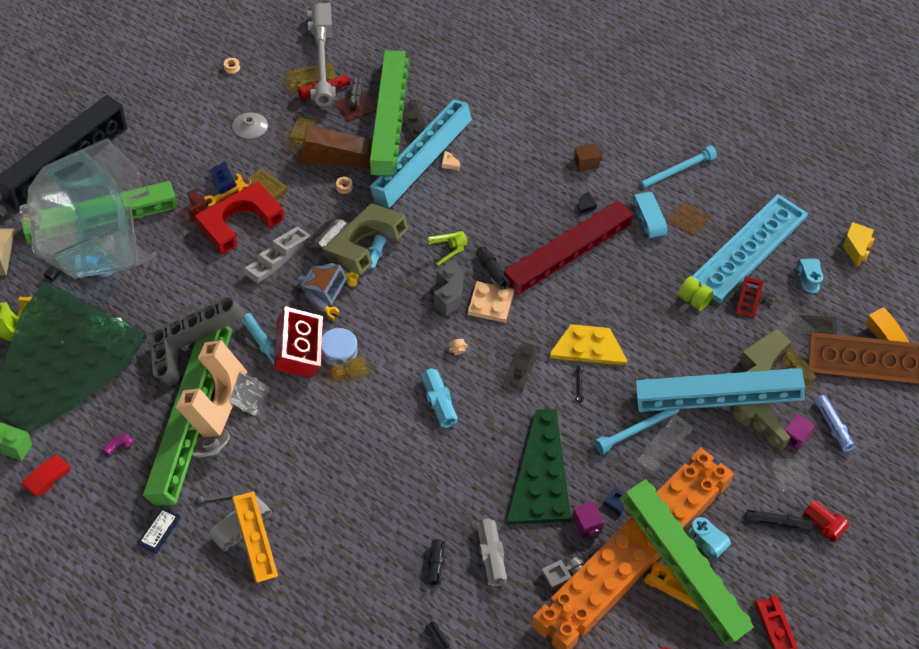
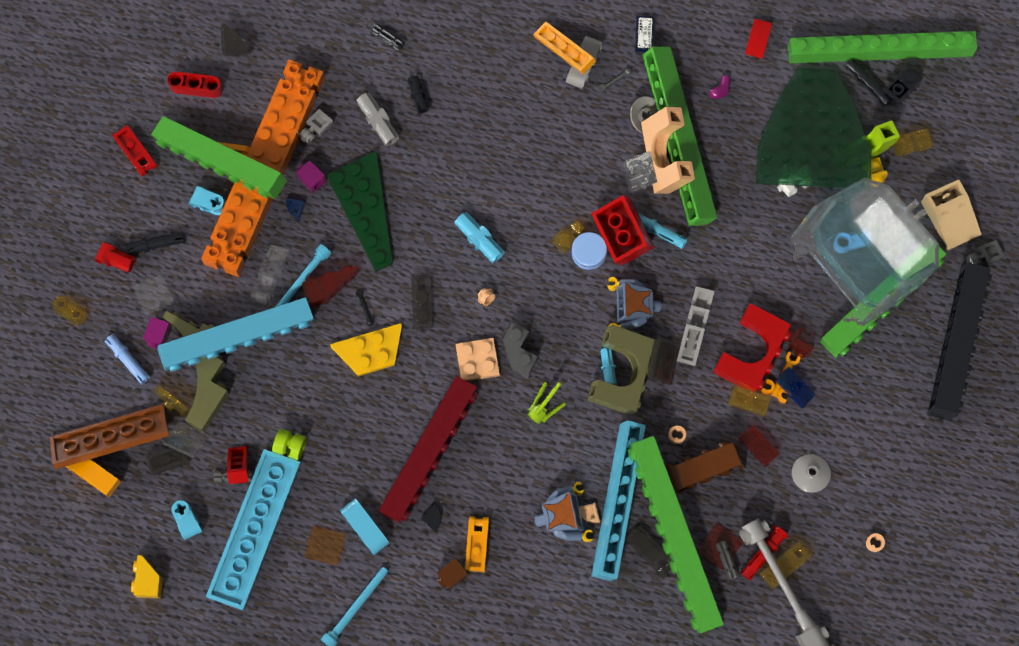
camera: 160 degrees right, 20 degrees up
(186, 330) = (733, 190): dark grey beam -> none
(280, 153) = (759, 446): none -> clear red plate
(300, 127) = (753, 487): clear yellow slope -> none
(473, 162) = (563, 515): none -> torso
(489, 263) = (490, 392): black pin -> none
(556, 171) = (476, 545): none -> light orange plate
(612, 409) = (325, 288): none -> clear red slope
(884, 491) = (69, 309): none -> clear yellow plate

